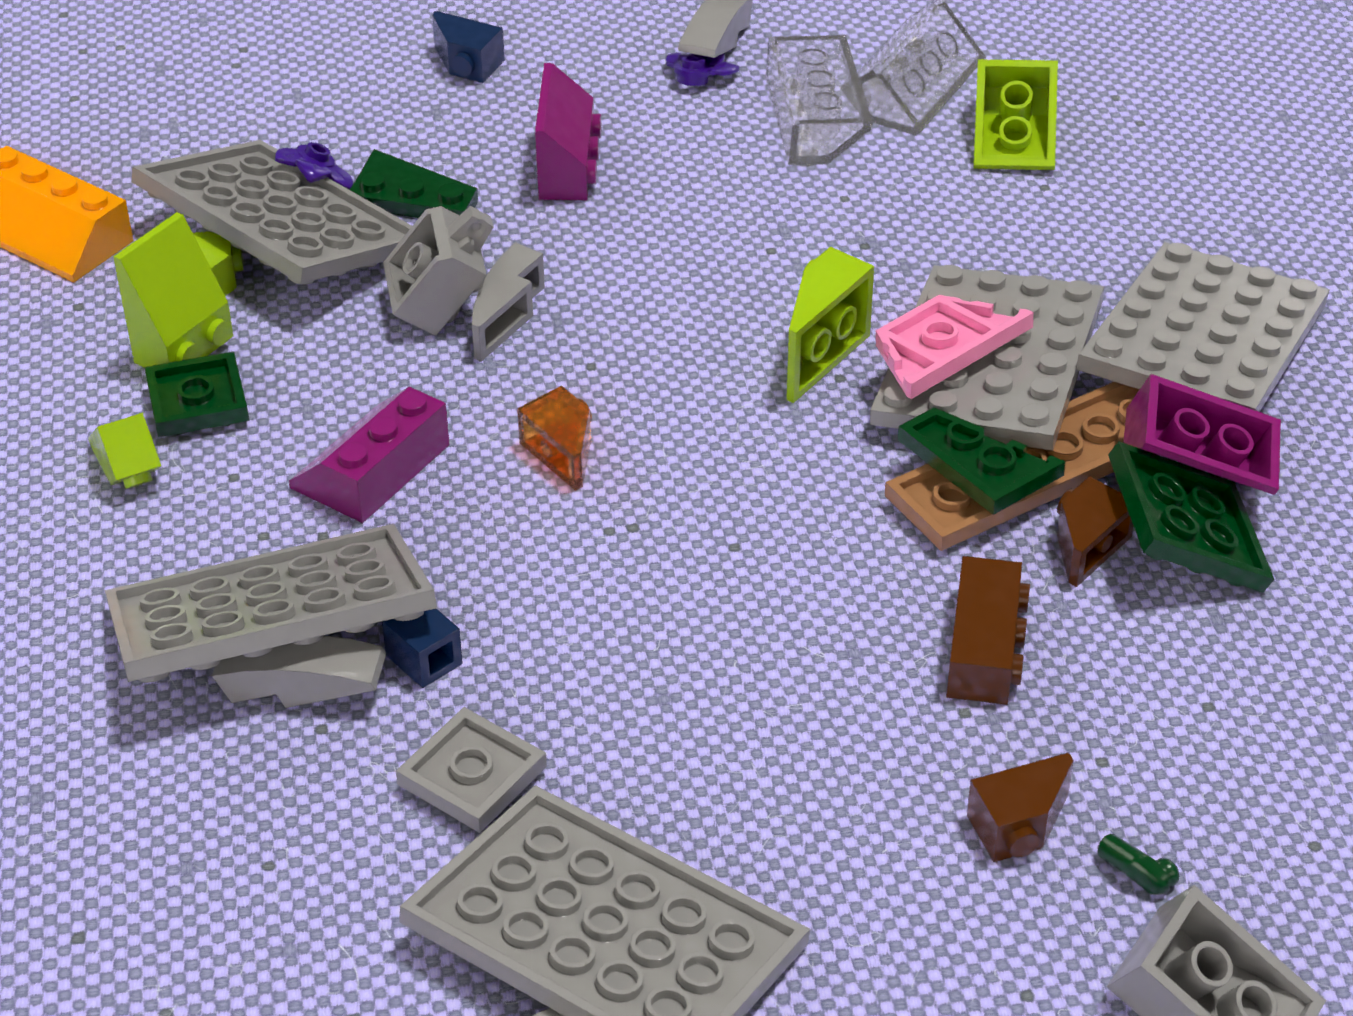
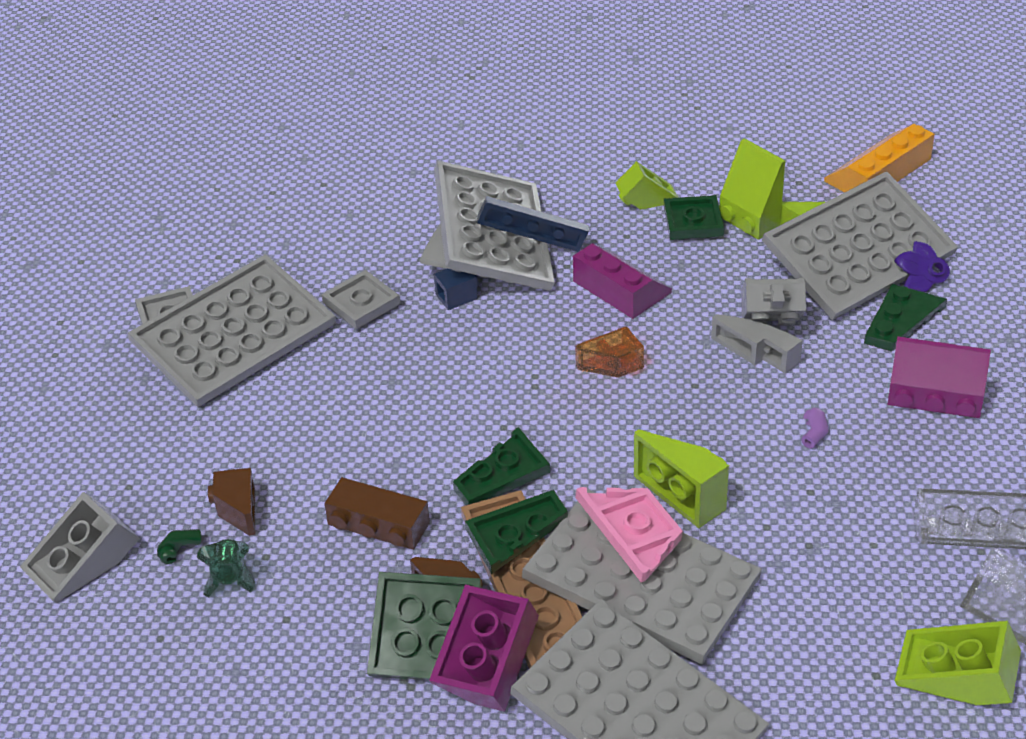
camera: 105 degrees right, 0 degrees up
(270, 543) = (532, 224): none -> dark blue plate
(661, 242) = (818, 425): none -> medium lavender arm
(842, 516) = (502, 471): none -> dark green wing
(1166, 772) = (226, 565): none -> brick

